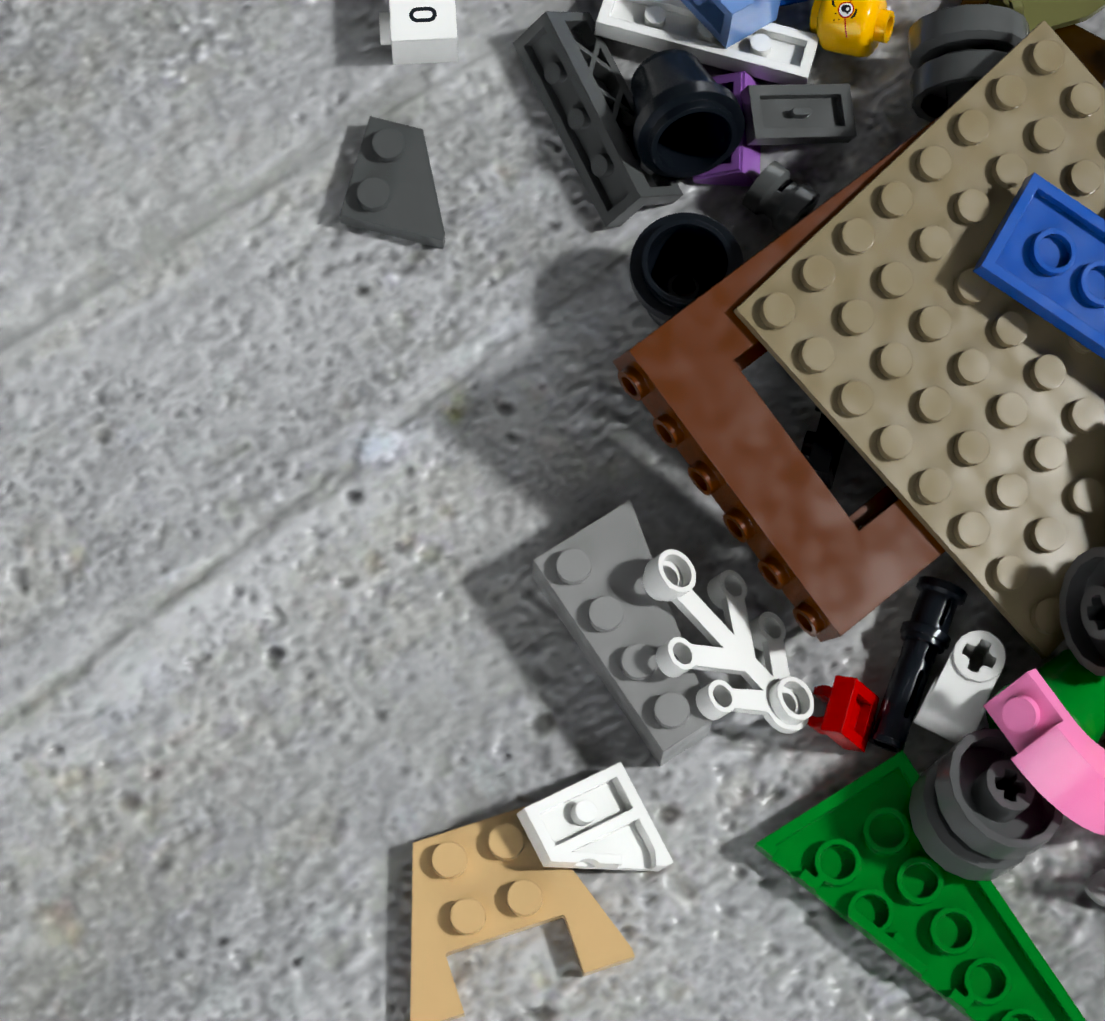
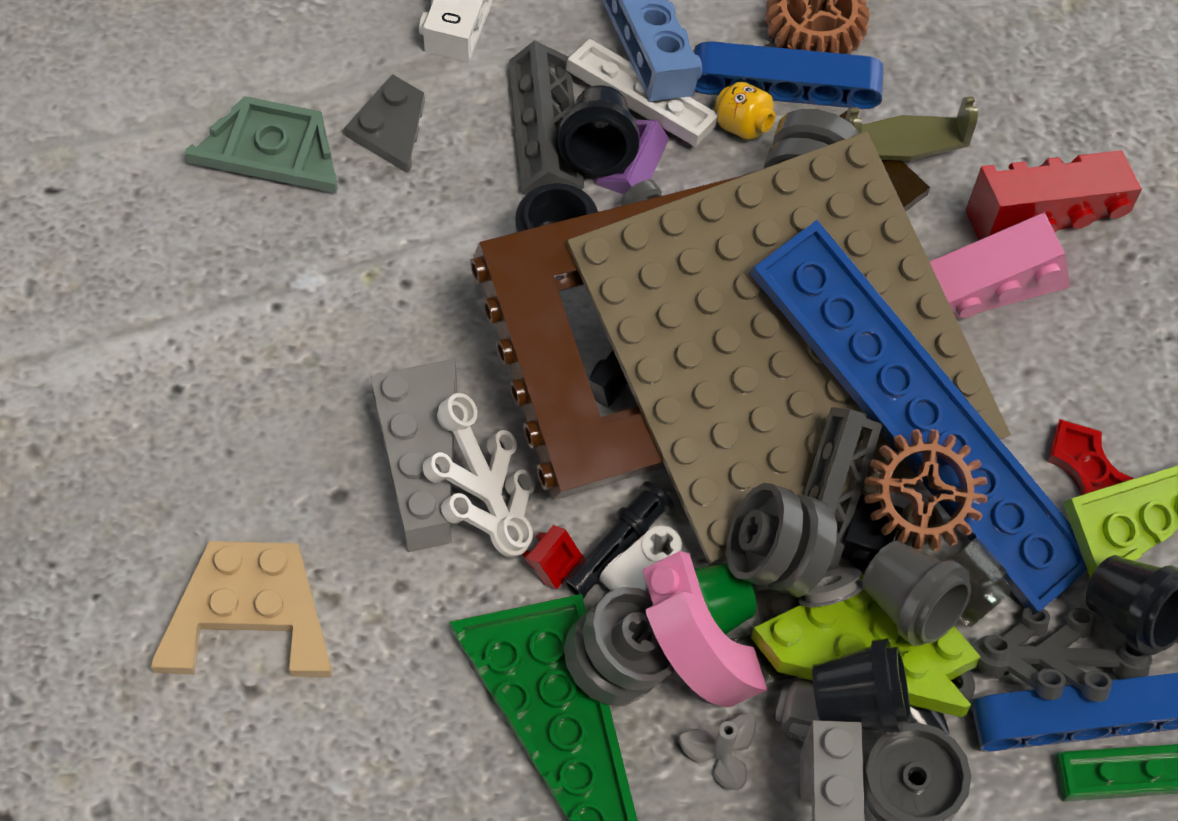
camera: 20 degrees right, 10 degrees down
(253, 270) = (270, 143): none -> sand green wing
(595, 826) = (339, 571): white wing -> none
(798, 114) = (682, 157): dark grey plate -> none

